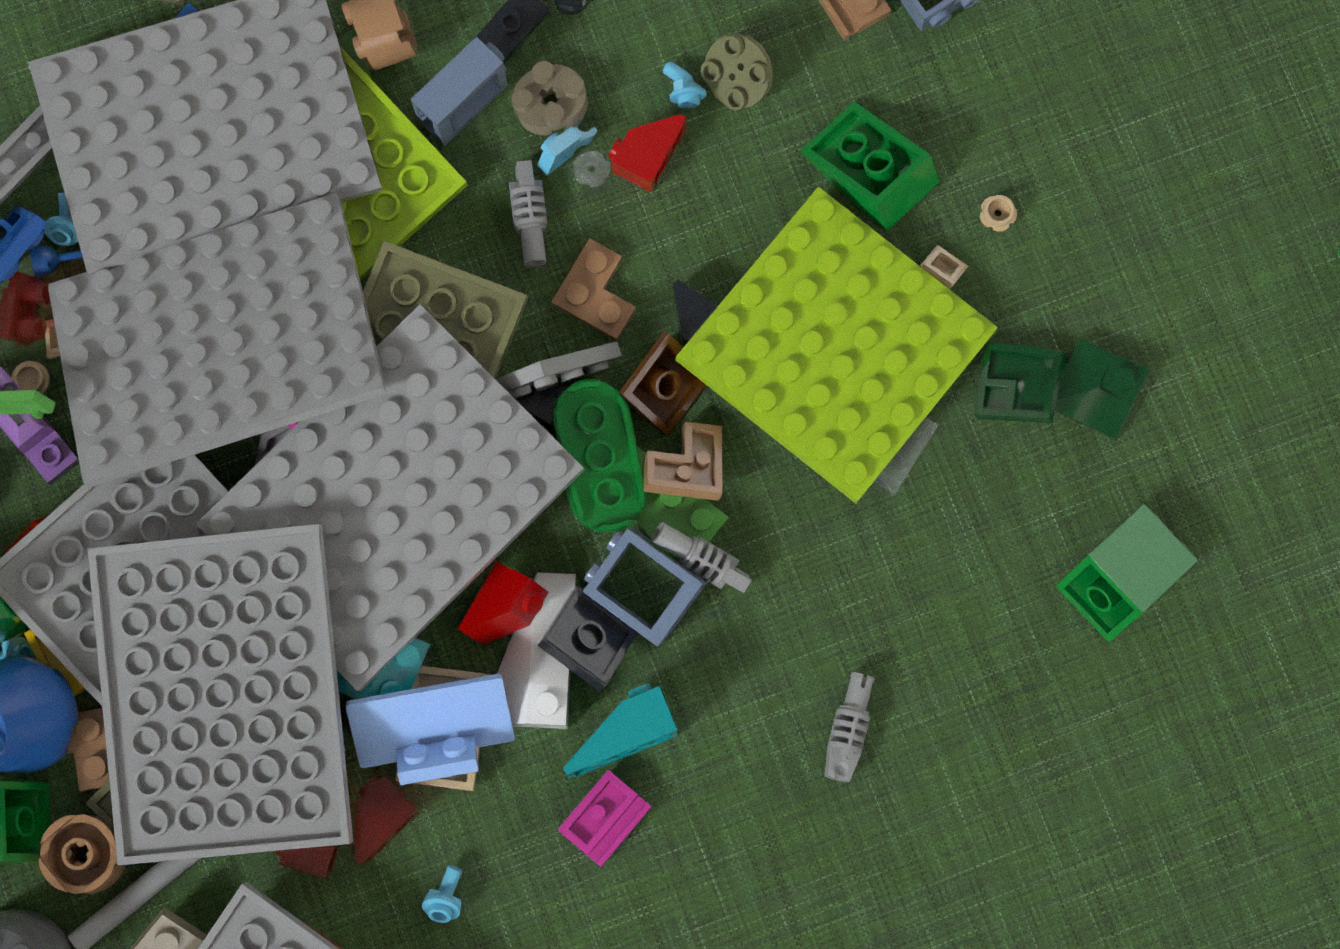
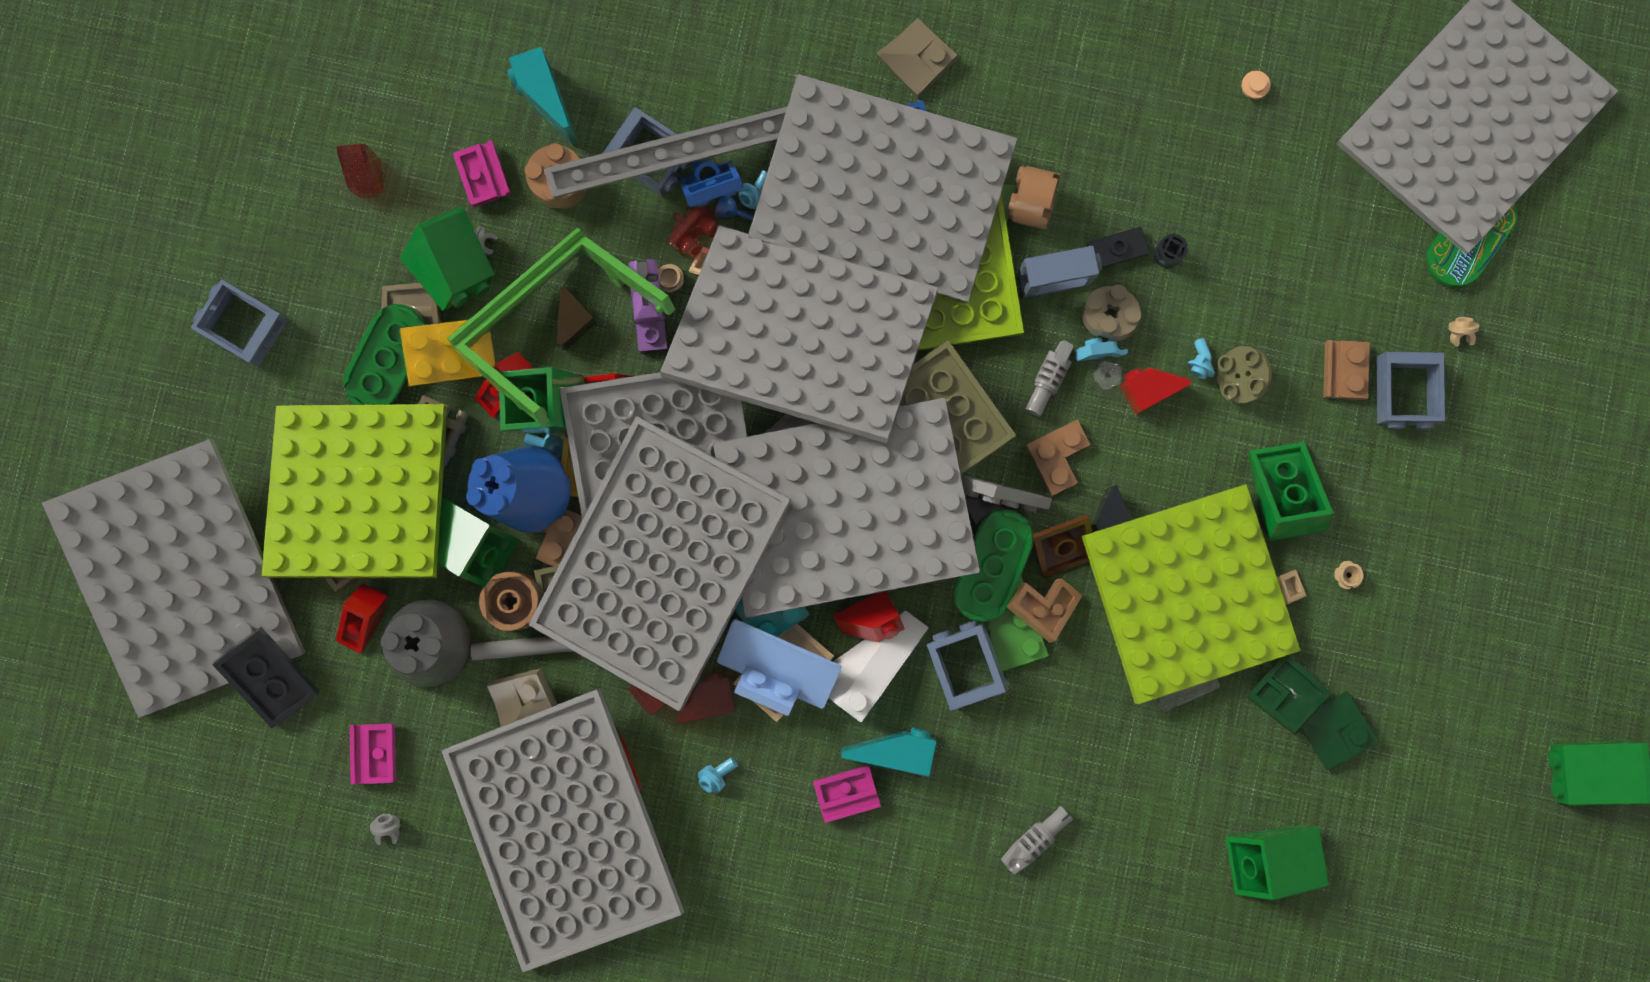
camera: 30 degrees right, 5 degrees up
(587, 639) = (909, 676): black plate -> none
(701, 558) = (1015, 672): light grey hinge -> none

